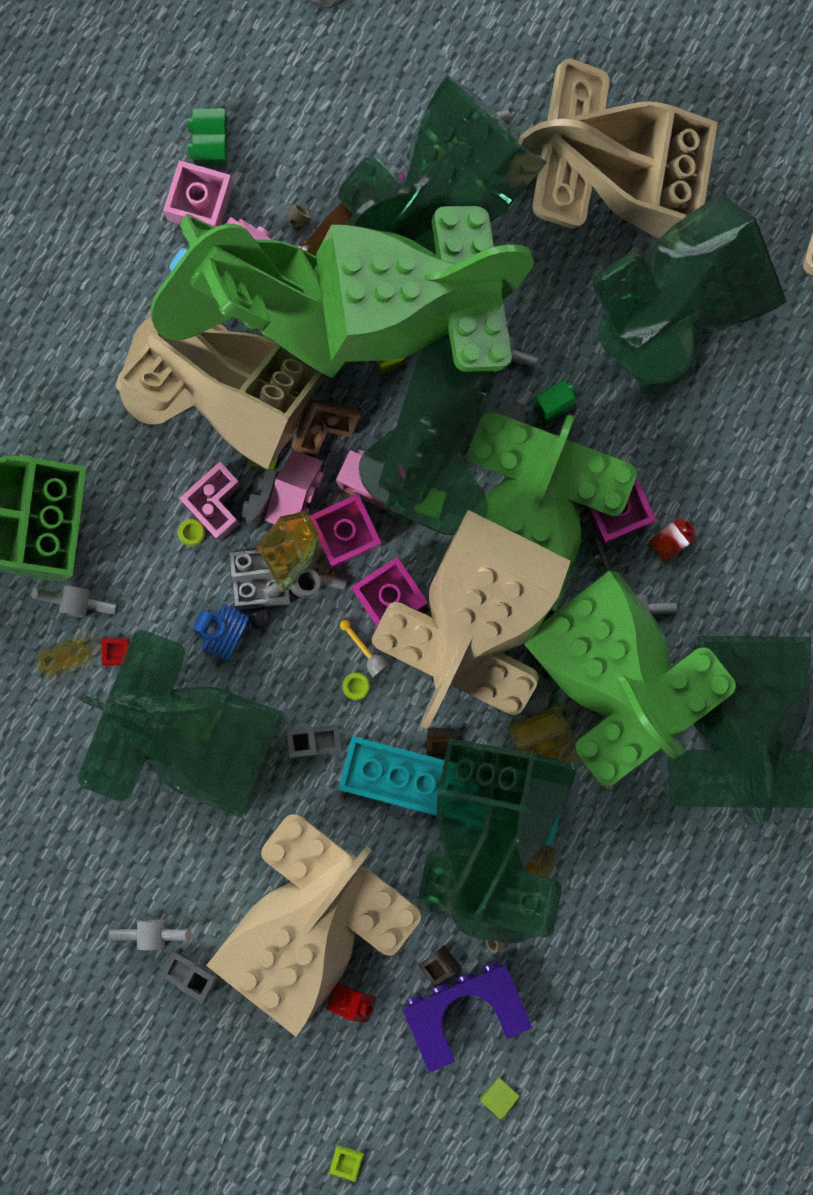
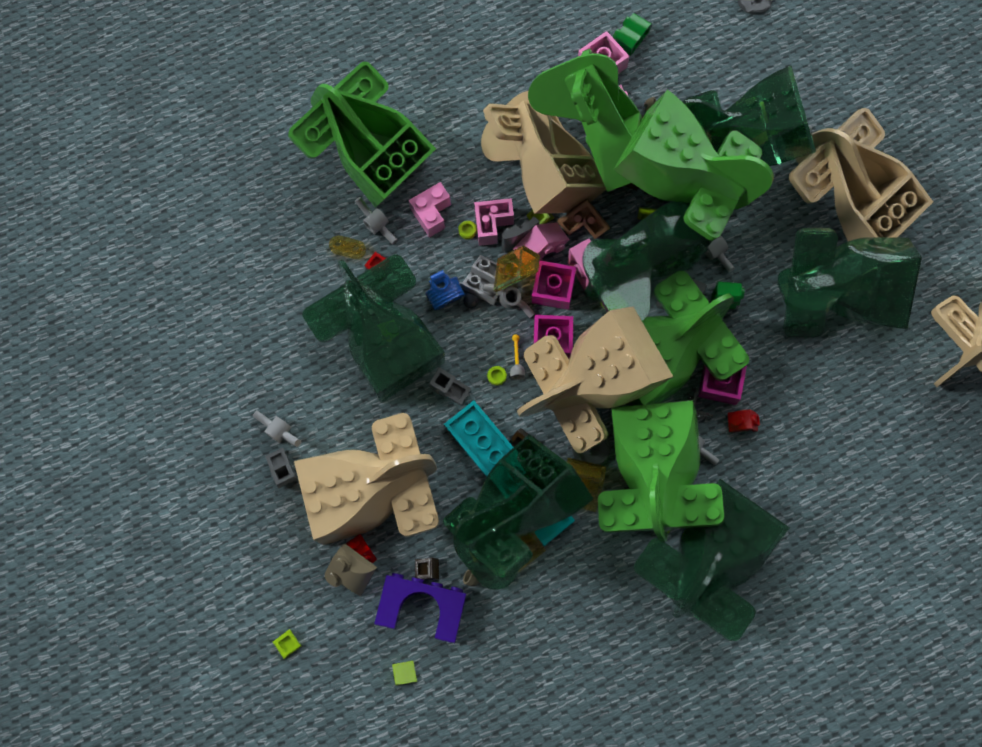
camera: 35 degrees right, 10 degrees down
(123, 542) = (427, 208): none -> bright pink brick
(357, 1034) = (349, 570): none -> dark tan slope

